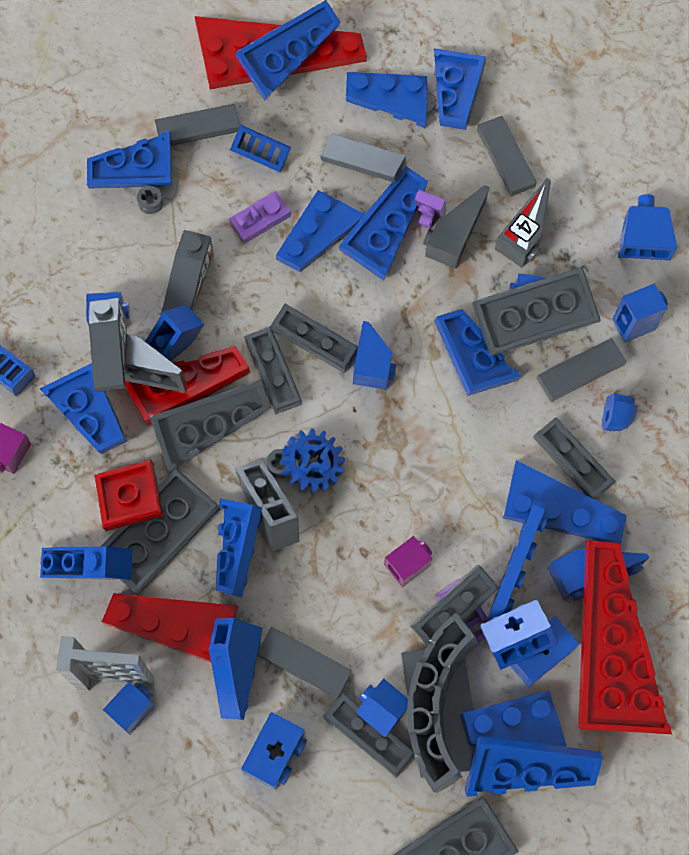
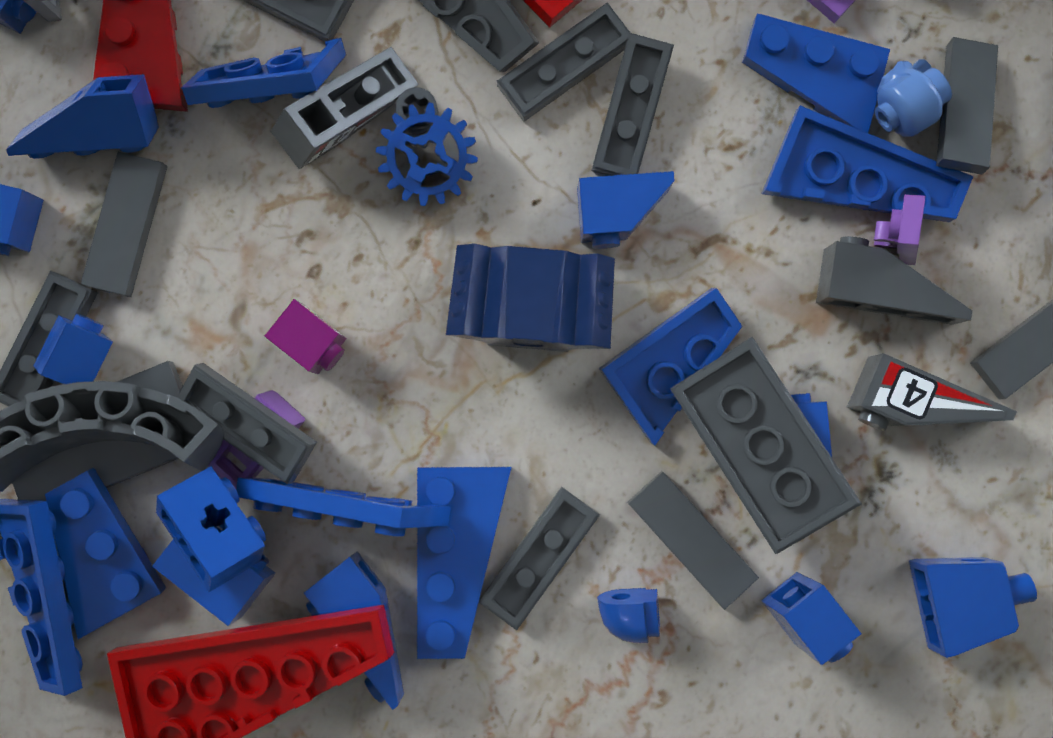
camera: 80 degrees right, 15 degrees up
(352, 185) = (911, 98): none -> medium blue head
(419, 416) = (531, 298): none -> dark blue slope

